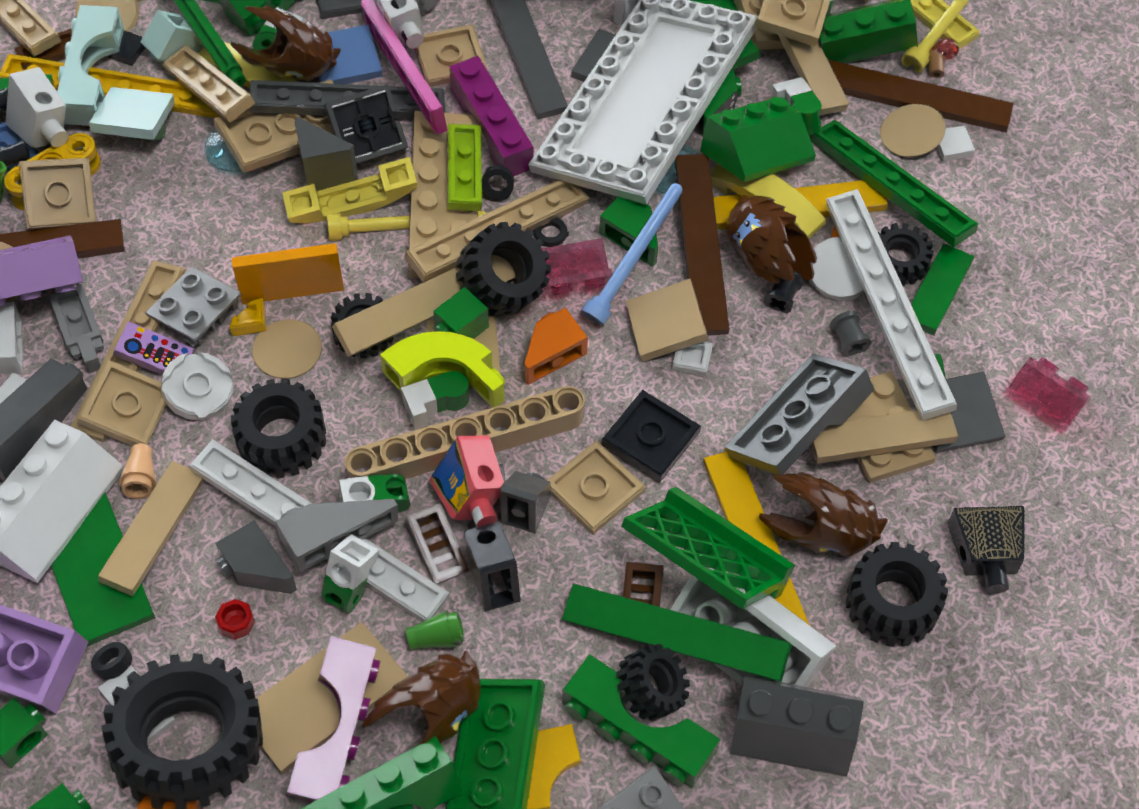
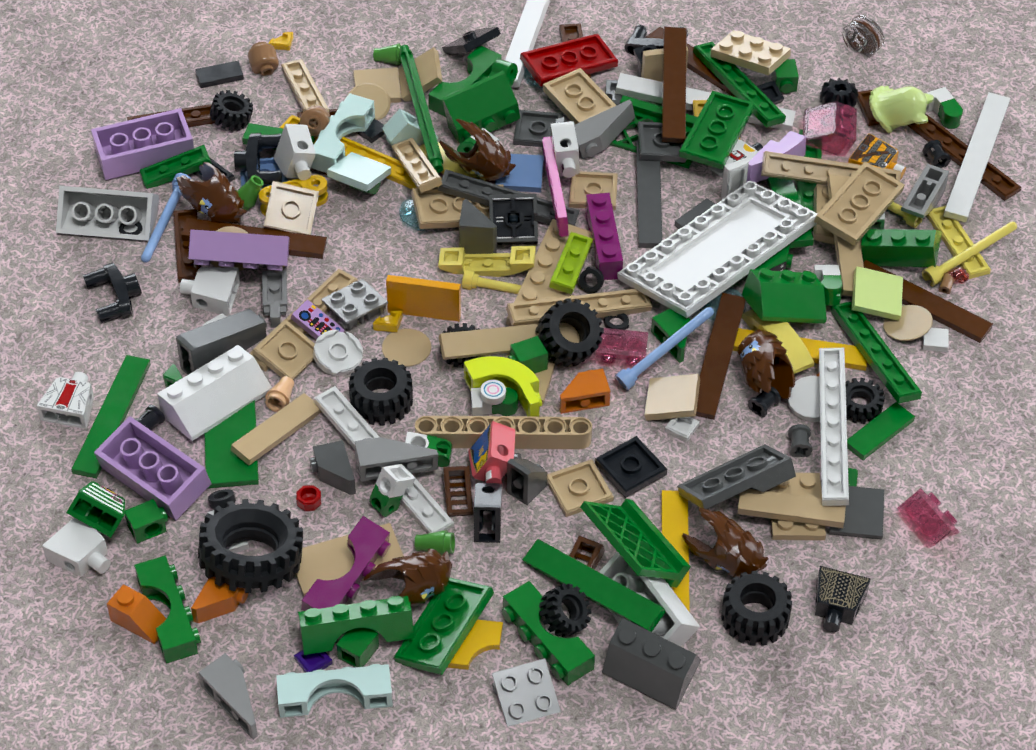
camera: 20 degrees right, 10 degrees down
(46, 45) = (320, 115): none -> medium nougat head
(434, 386) = (493, 392): none -> white tile
(864, 102) = (877, 293): none -> yellowish green tile

